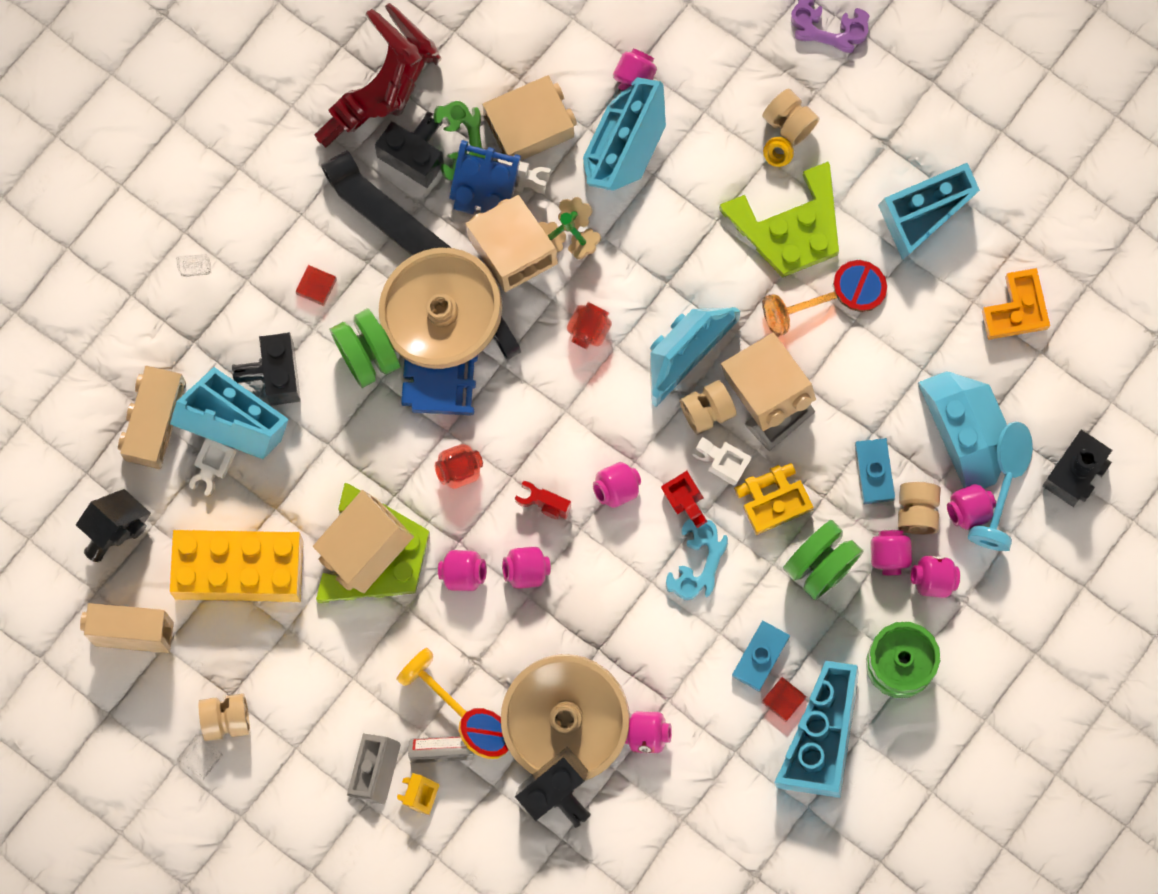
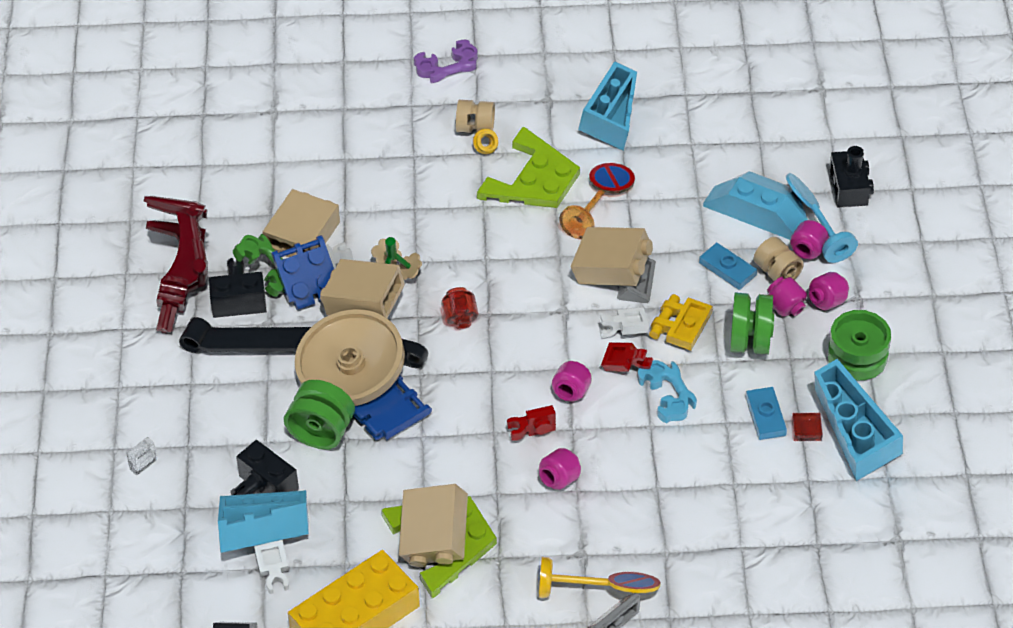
camera: 40 degrees left, 25 degrees down
(151, 416) = (199, 565): tan brick -> none
(316, 285) = (243, 414): clear red tile -> none
(458, 466) = (452, 443): clear red head -> none
(462, 570) = (518, 500): dark pink head -> none
(554, 787) = (715, 573): black brick -> none
(561, 705) = (680, 531): tan dish -> none
(626, 136) = (376, 189): medium azure wedge -> none
(634, 65) = (347, 157): dark pink head -> none
(648, 732) = (741, 503): dark pink head -> none
(686, 346) = (535, 277): medium azure wedge -> none
(709, 406) = (586, 298): tan wheel -> none
(1025, 312) = (726, 124): light orange plate -> none

